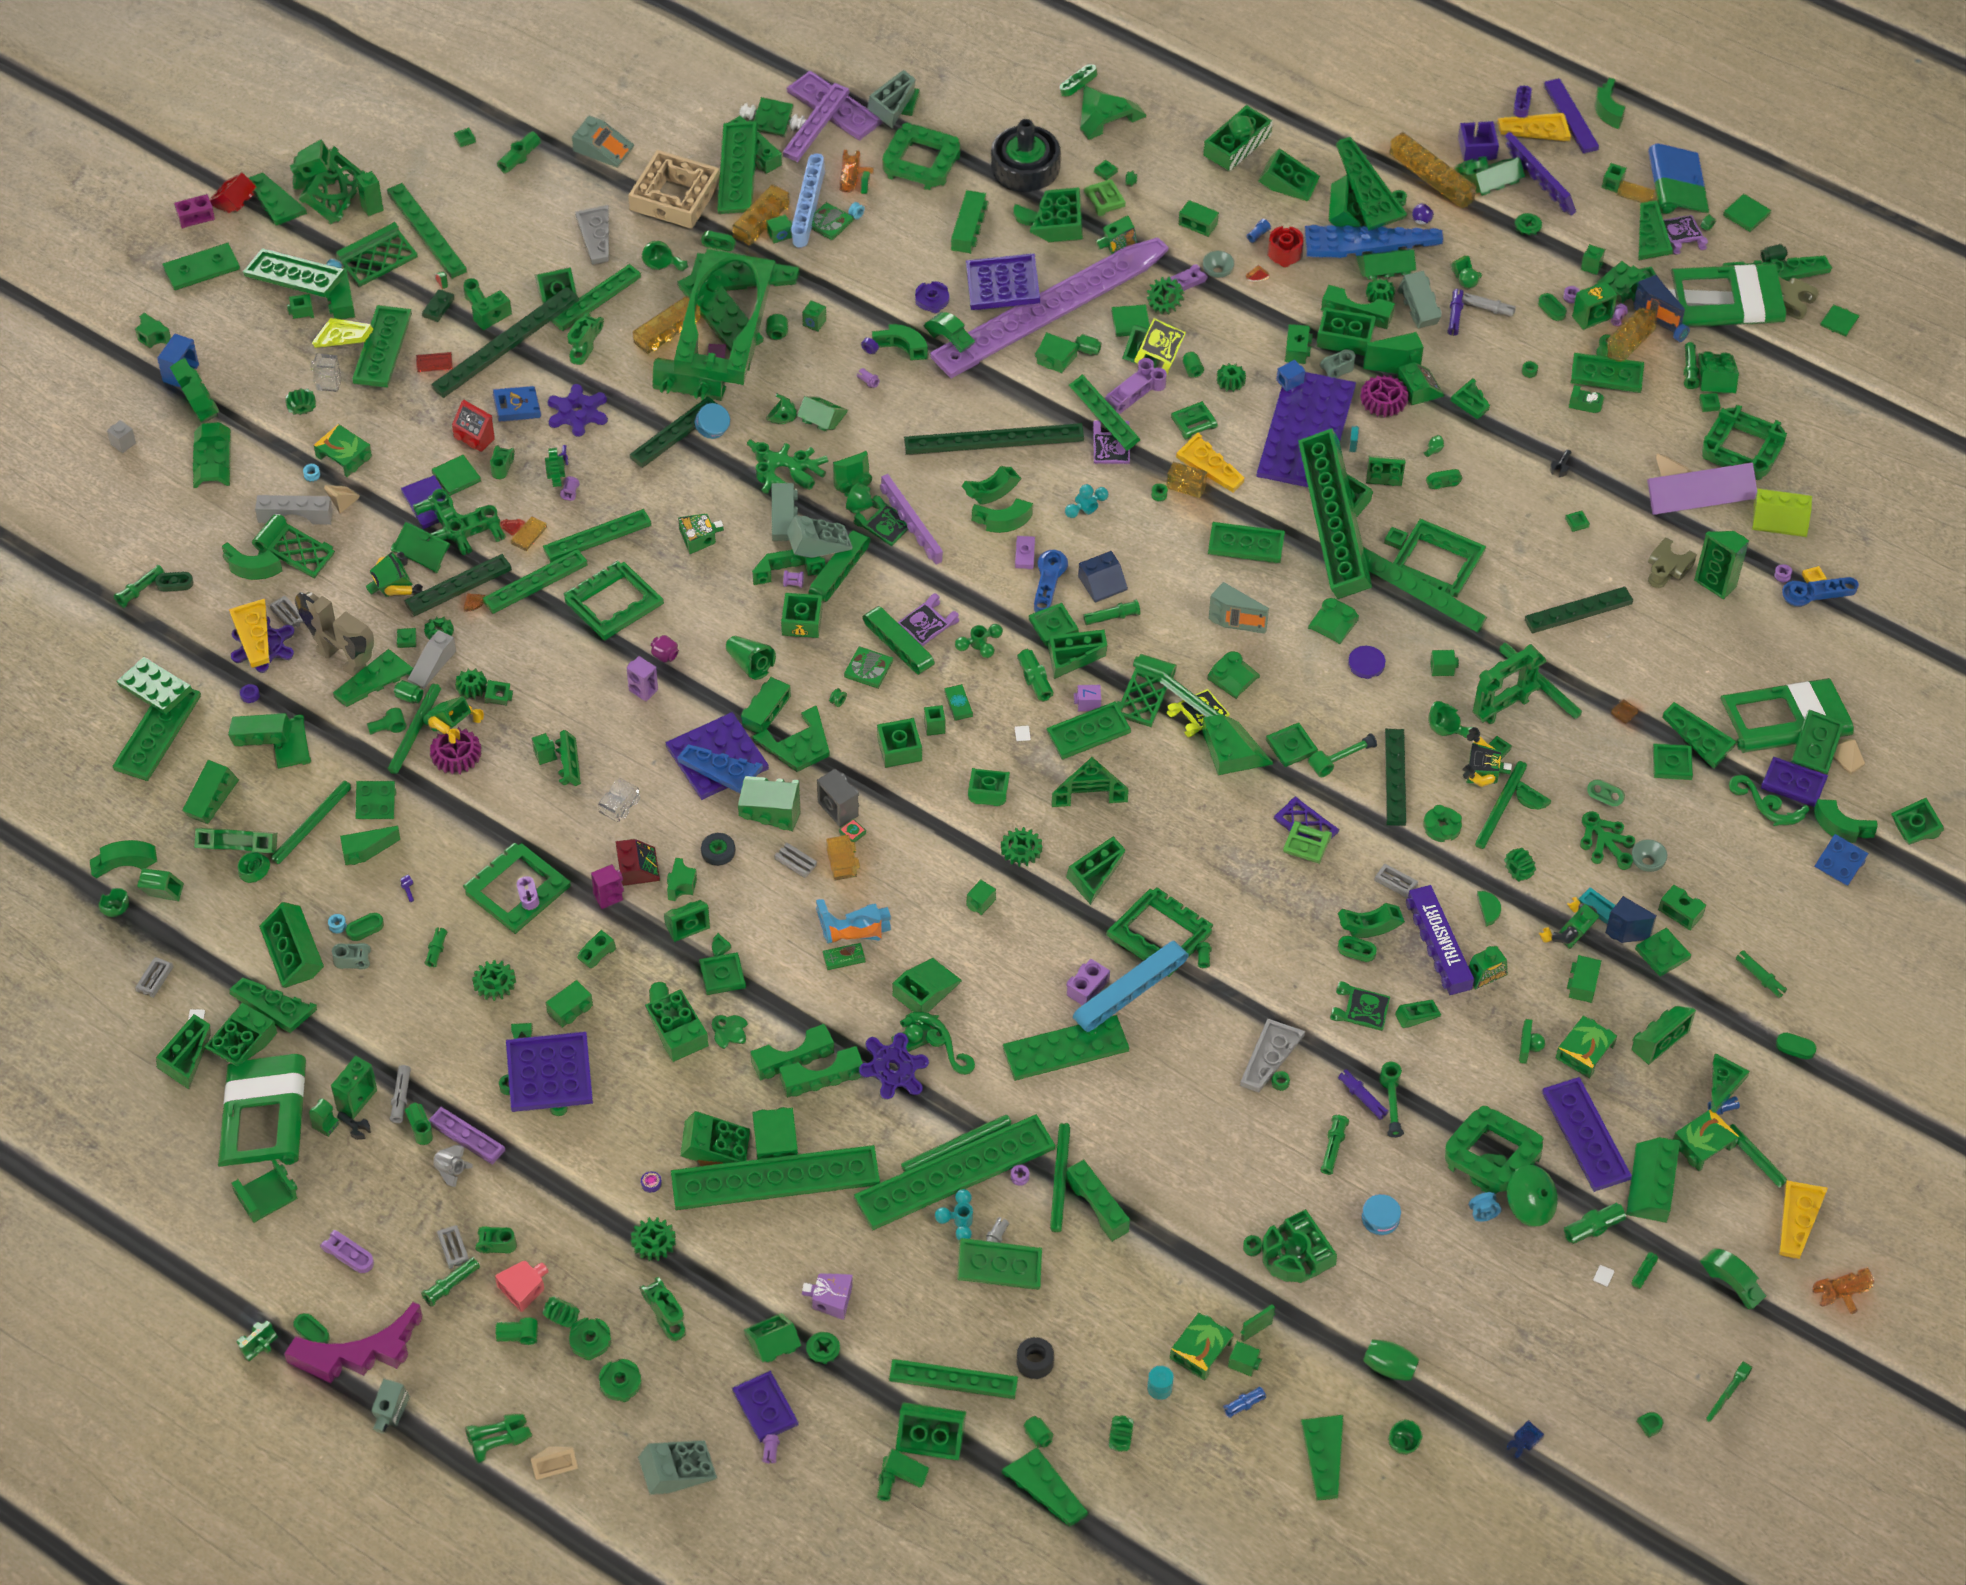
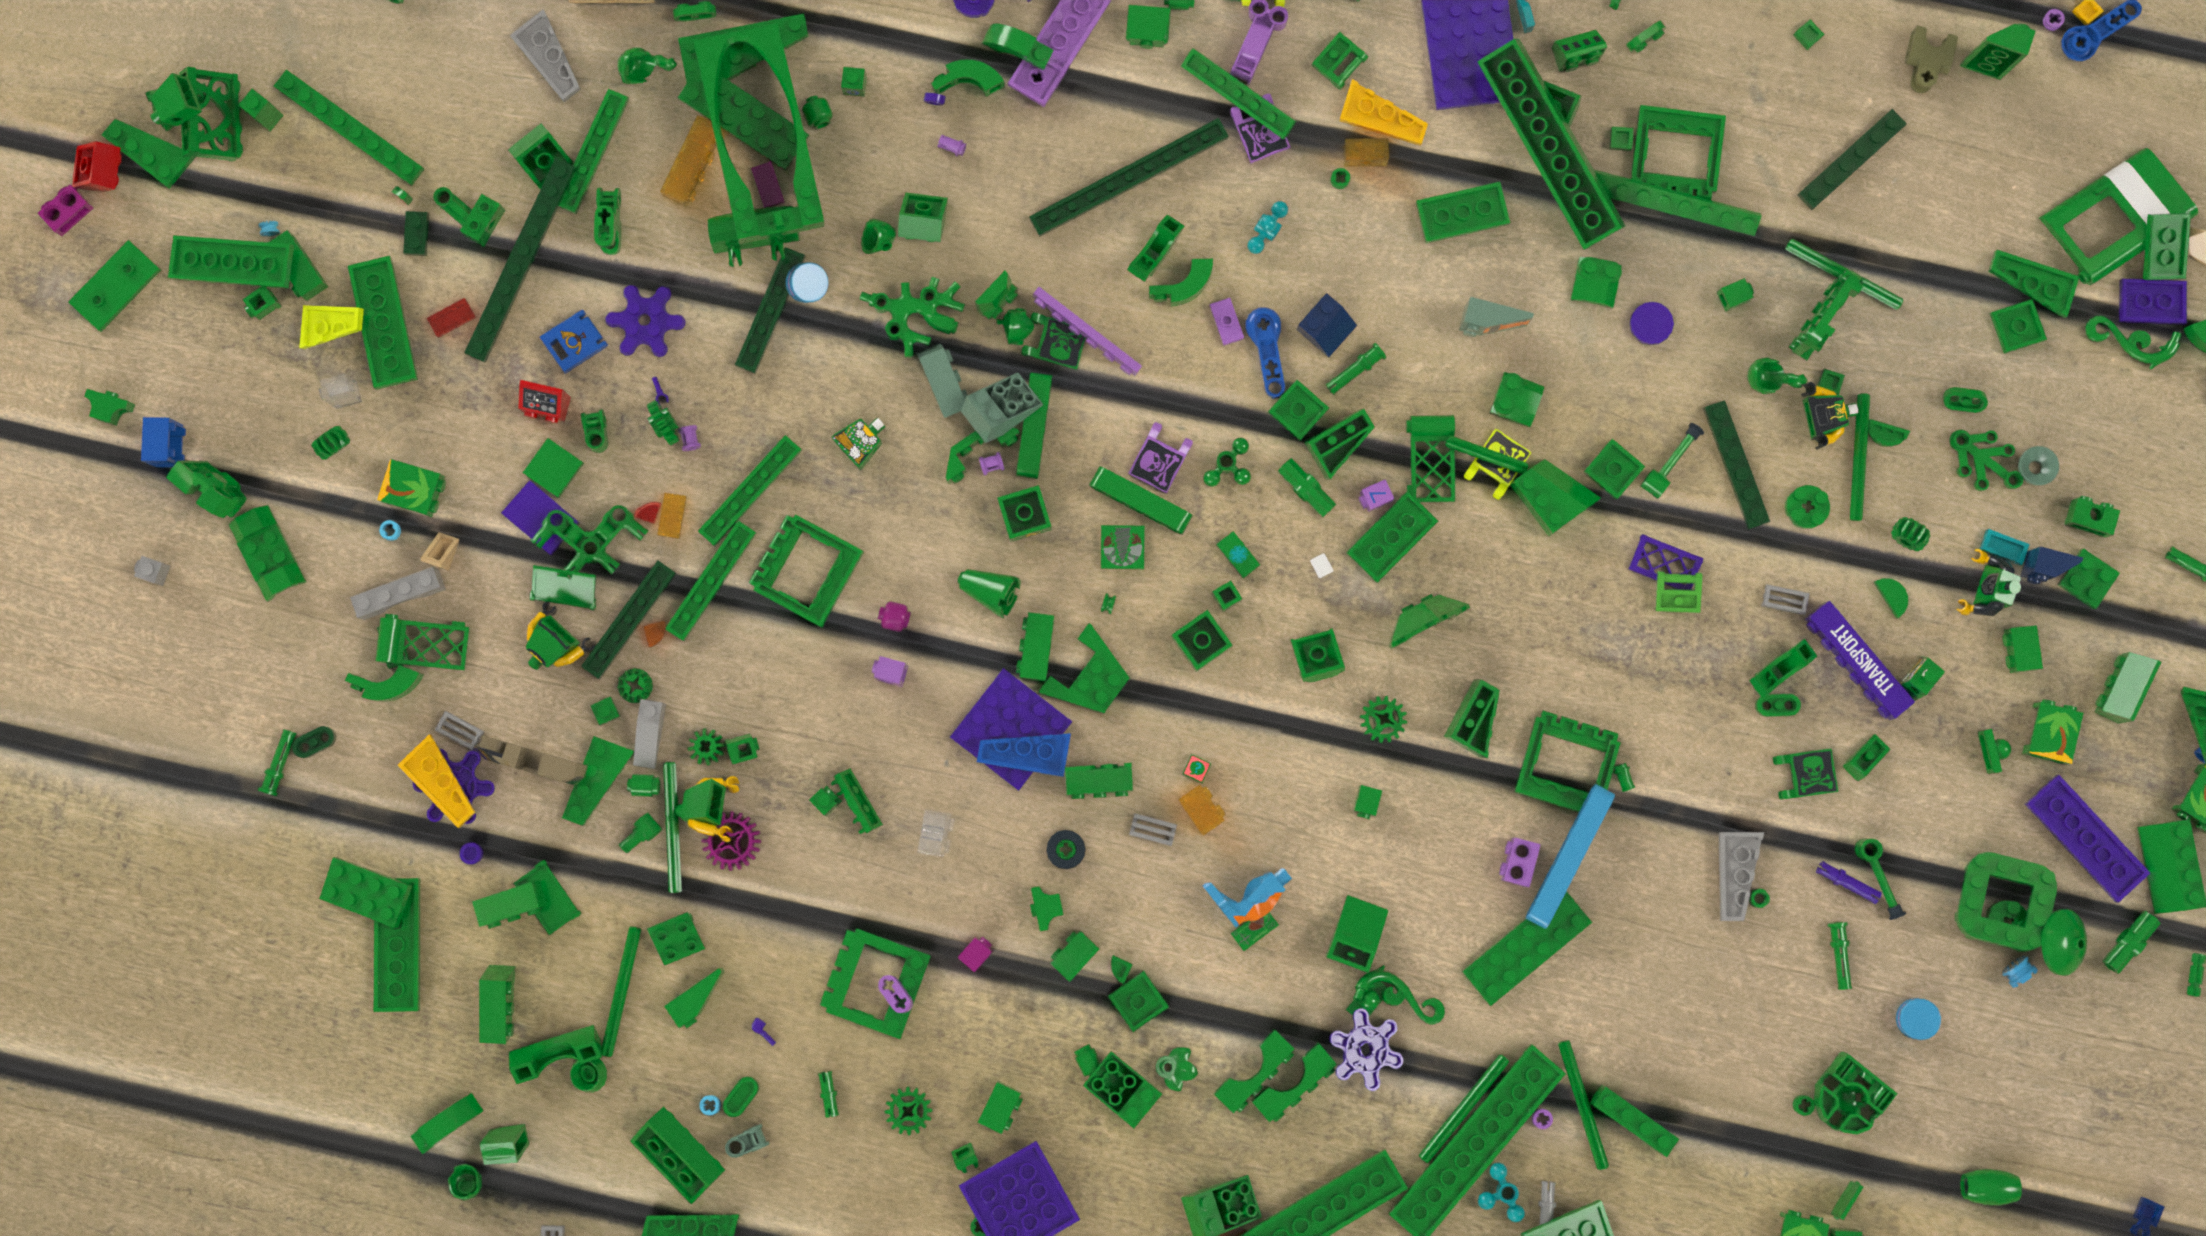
camera: 20 degrees left, 30 degrees up
(369, 245) = (295, 178): green fence -> none
(596, 949) = (997, 1029): green leg -> none
(637, 862) = (990, 903): dark red slope -> none
(775, 1133) = (1279, 1176): green panel -> none
(838, 797) = (1168, 741): dark grey brick -> none
(1603, 1275) = (2156, 994): white sticker -> none
(1624, 711) = (1946, 279): clear orange tile -> none

